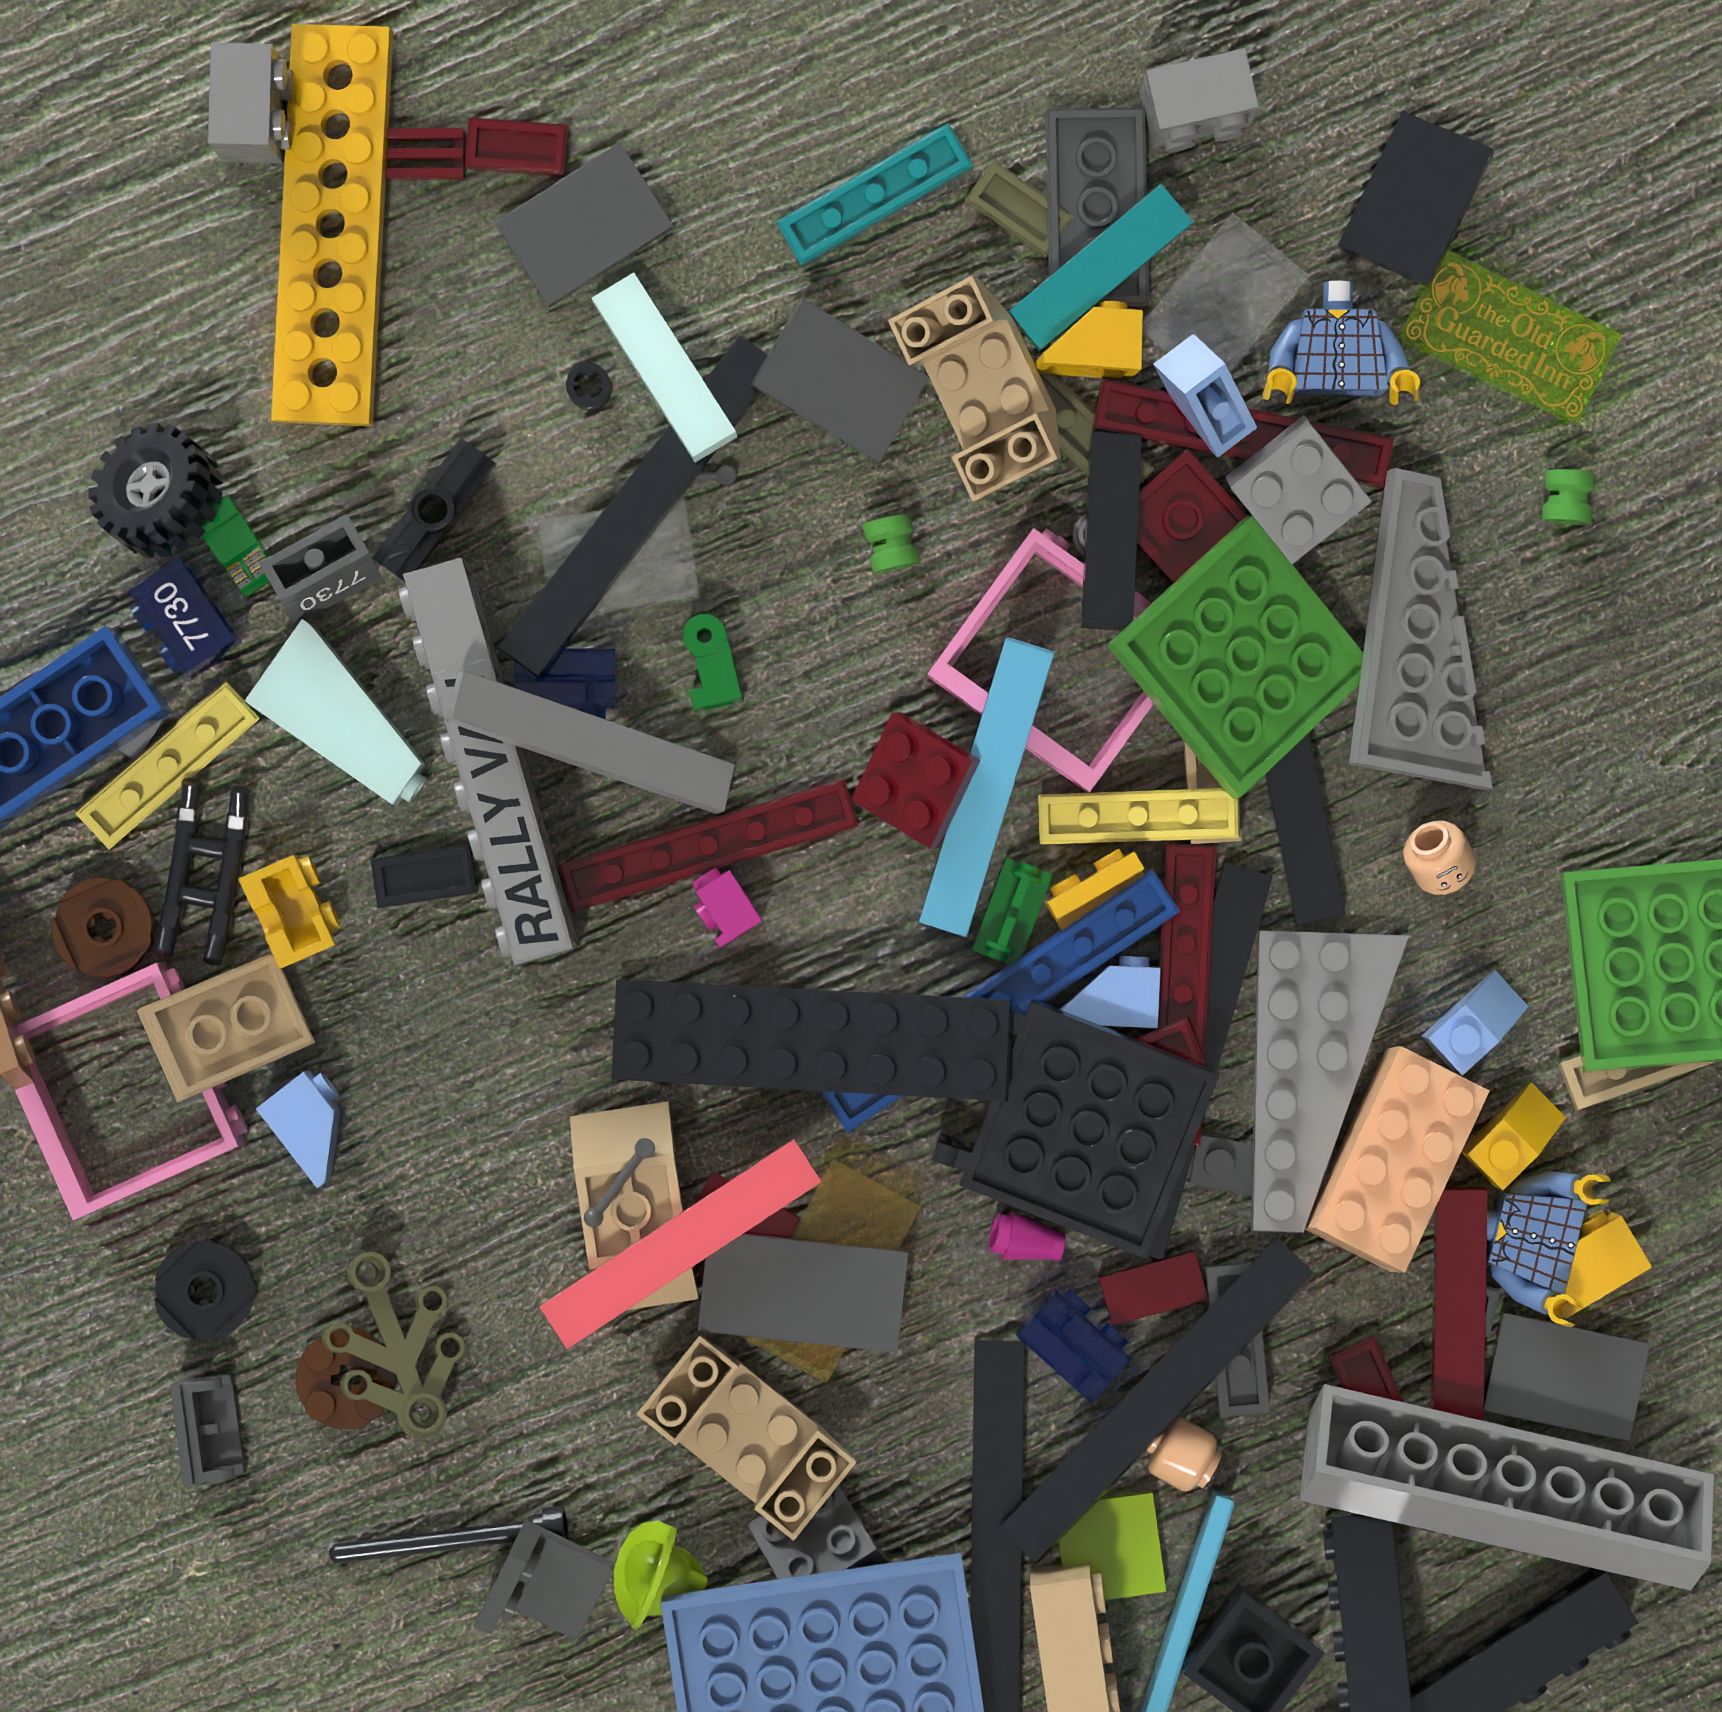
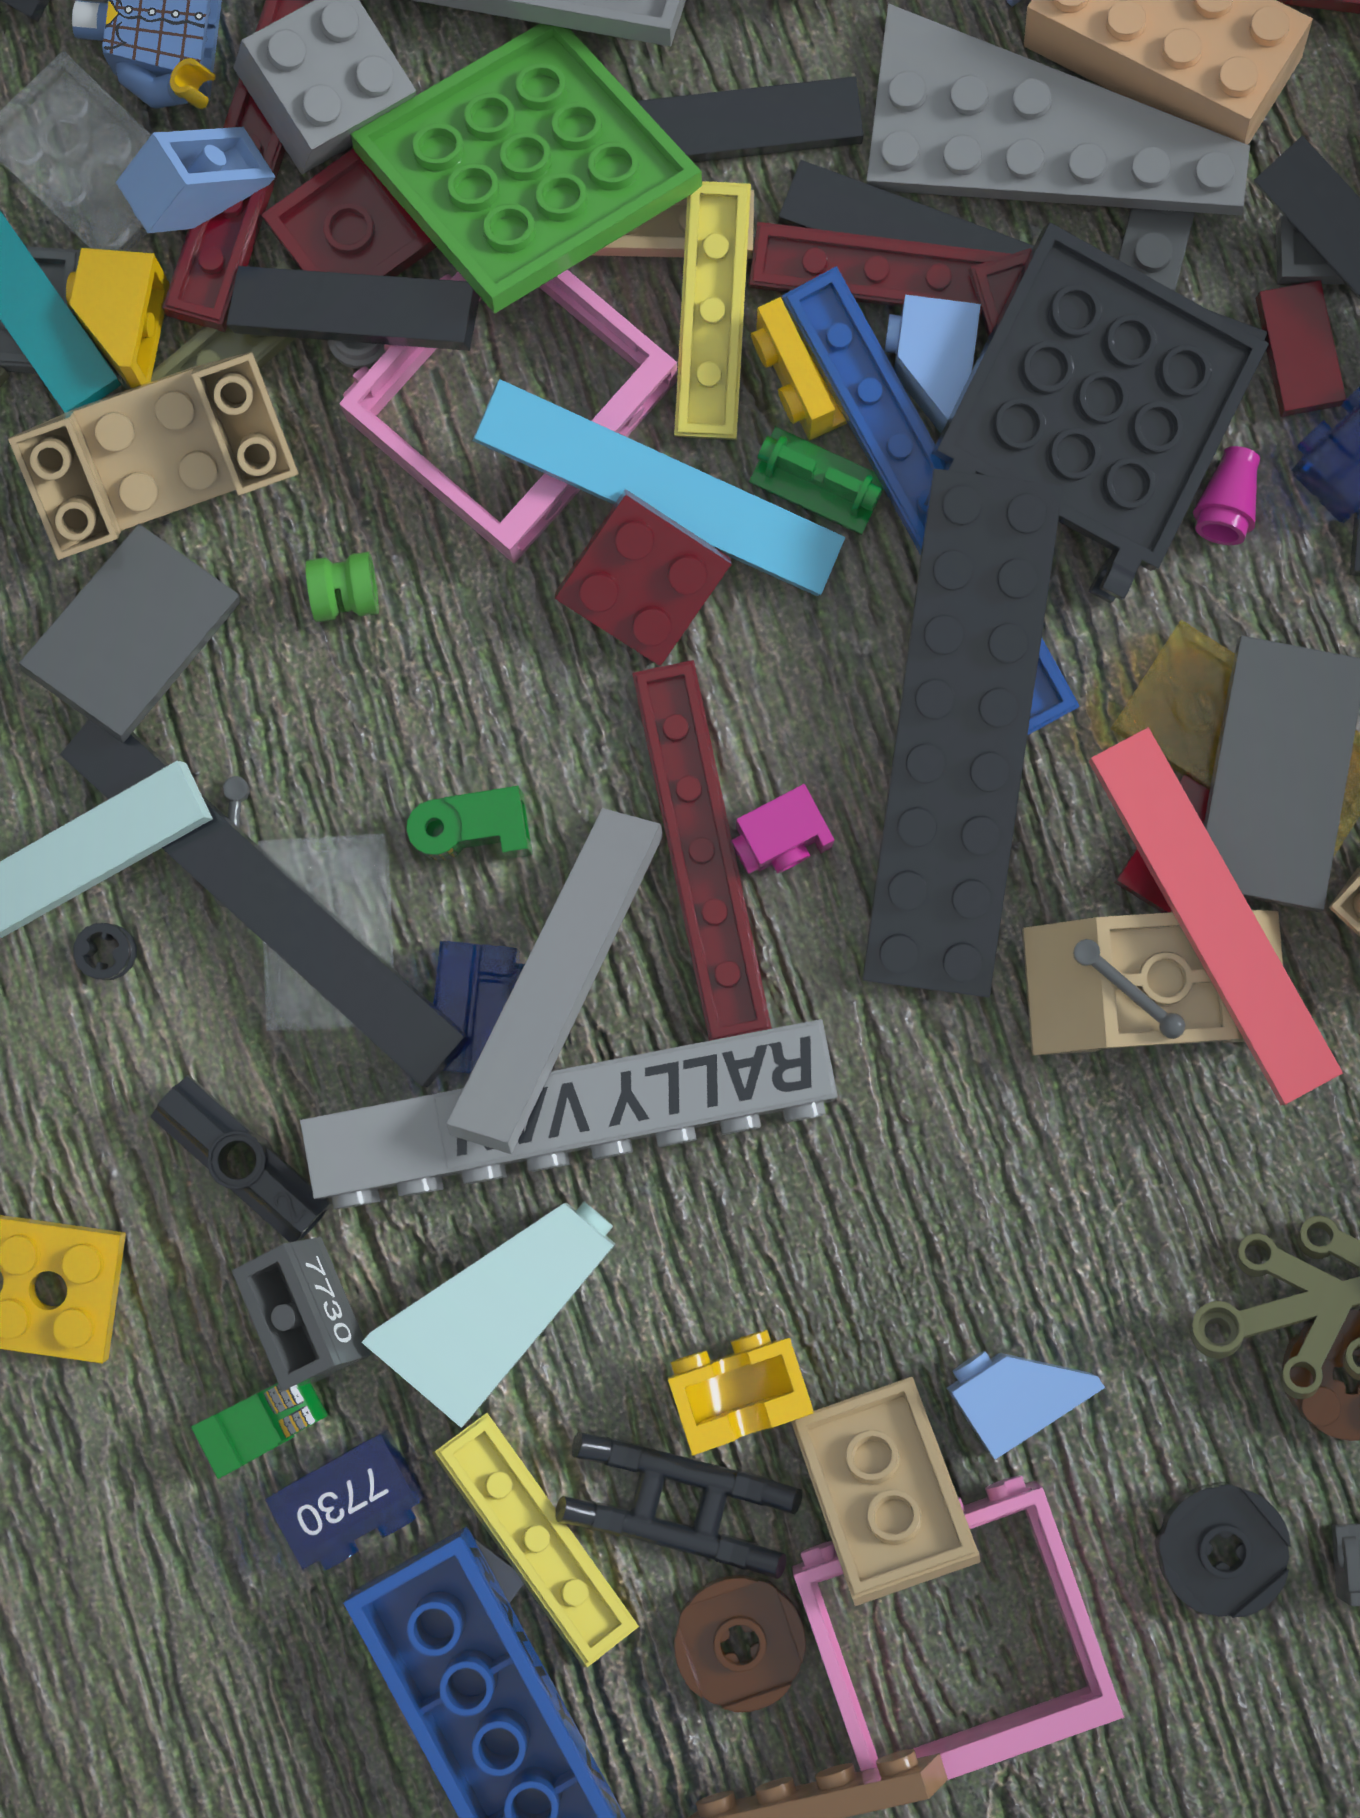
camera: 80 degrees left, 5 degrees down
(155, 490) = (174, 1521): black wheel -> none
(423, 876) = (709, 1217): black tile -> none

